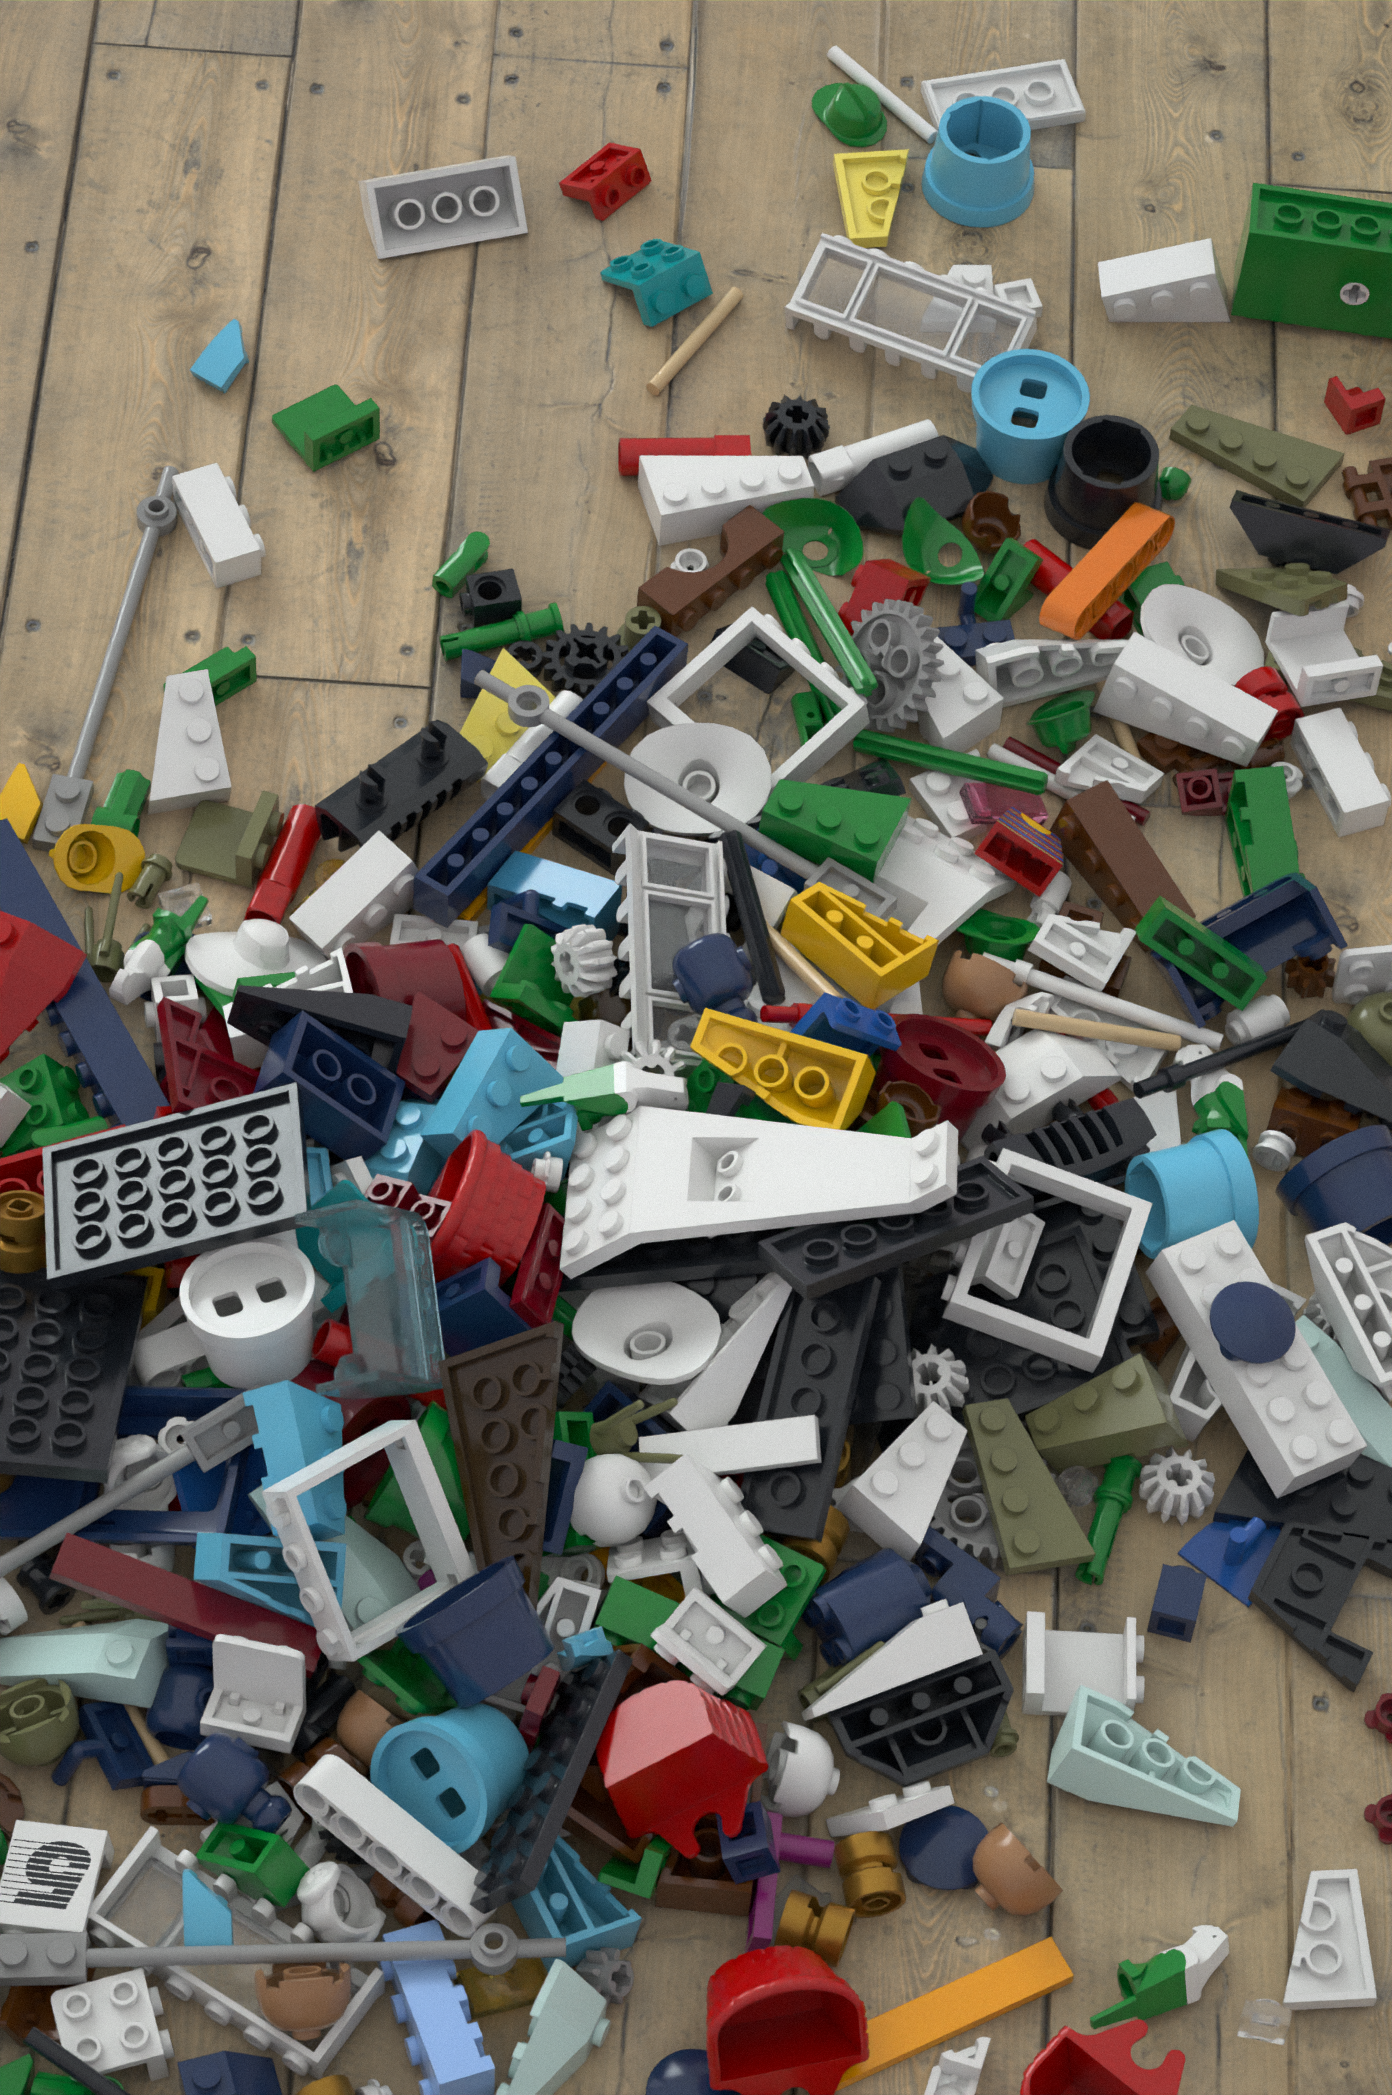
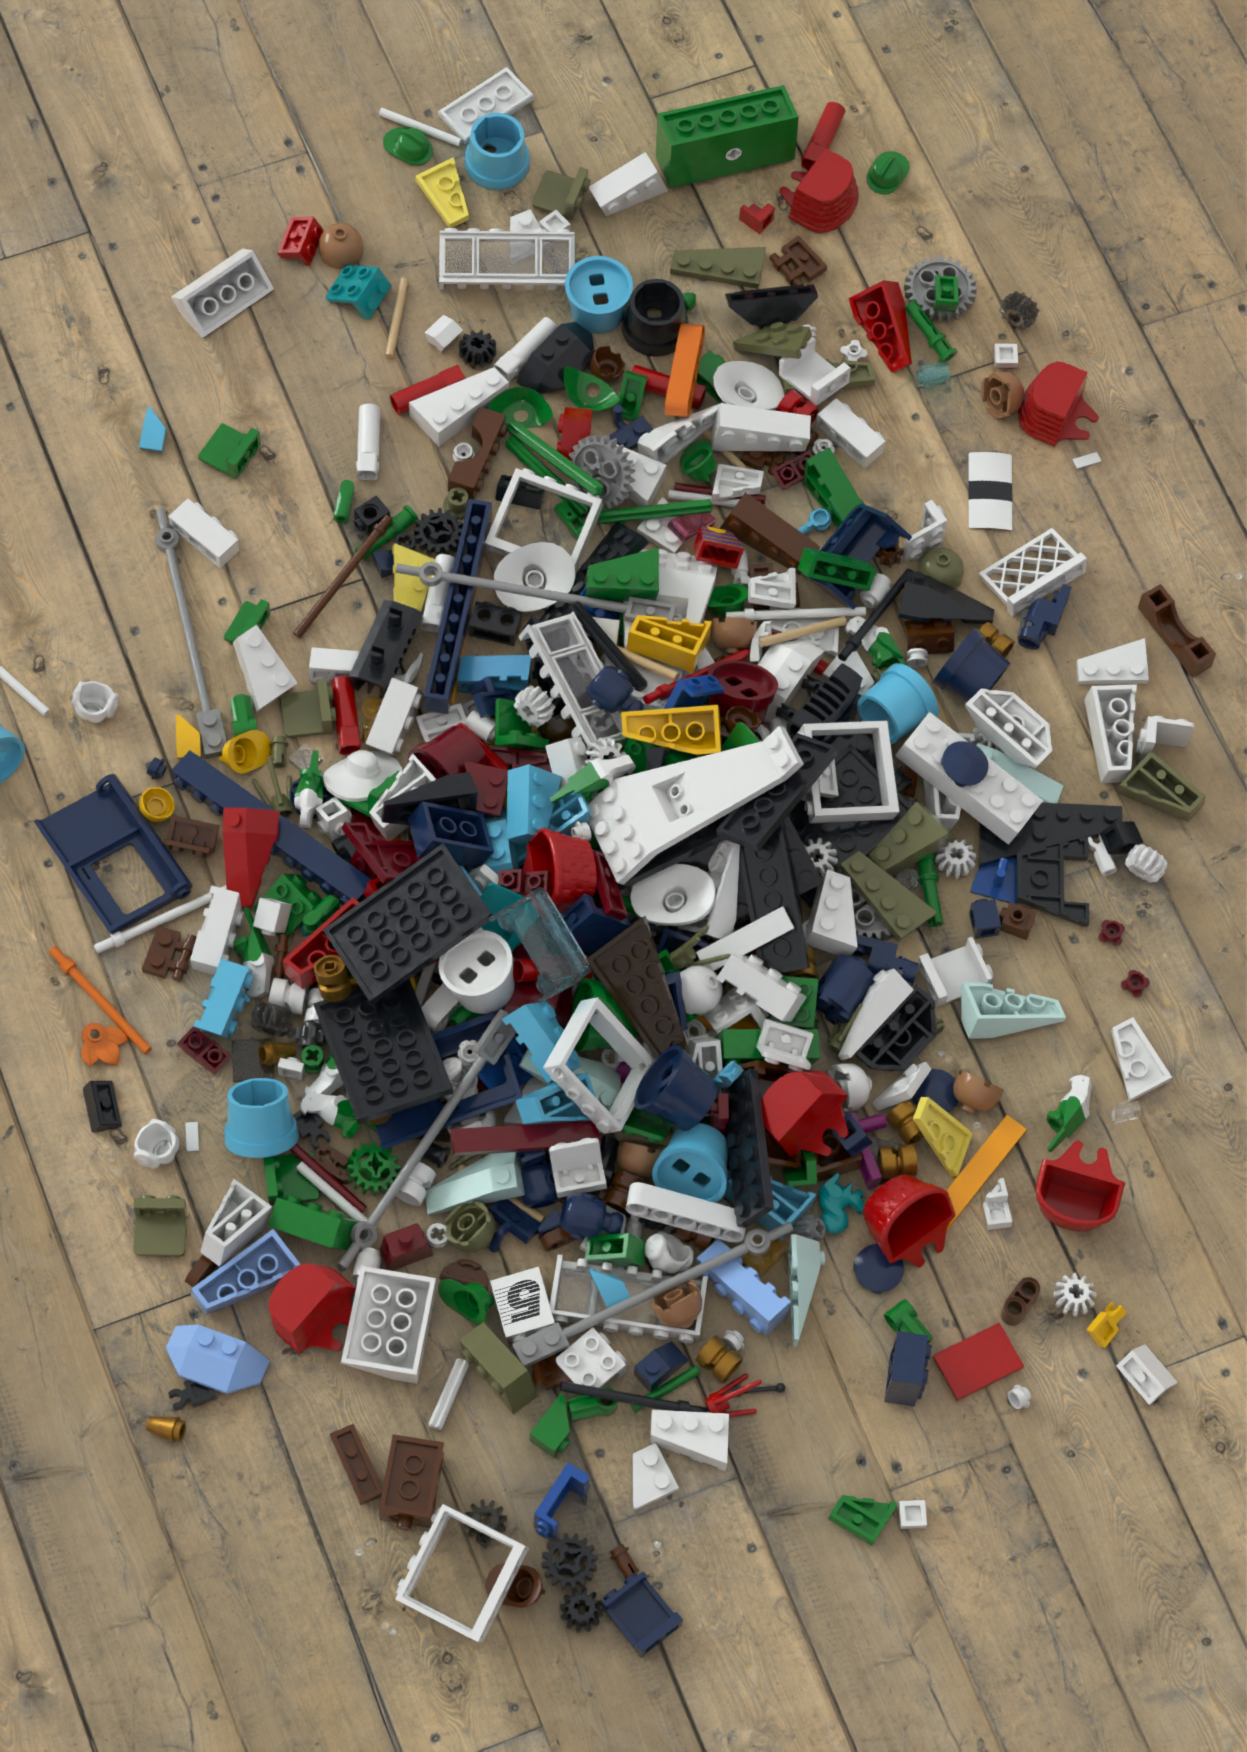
camera: 25 degrees left, 10 degrees up
(300, 780) = (330, 663): none -> white hinge
(426, 848) = (412, 671): none -> white bar
(487, 620) = (378, 530): none -> reddish brown bar
(548, 494) = (368, 442): none -> white piece
(664, 208) = (340, 245): none -> medium nougat cylinder
(673, 1947) = (833, 1201): none -> teal animal
(754, 386) = (443, 332): none -> white piece
(917, 1915) = (943, 1133): none -> light yellow wing
(1055, 259) = (562, 192): none -> olive bracket
(1218, 881) = (818, 520): none -> medium azure plate
(1237, 1639) = (1018, 927): none -> reddish brown brick

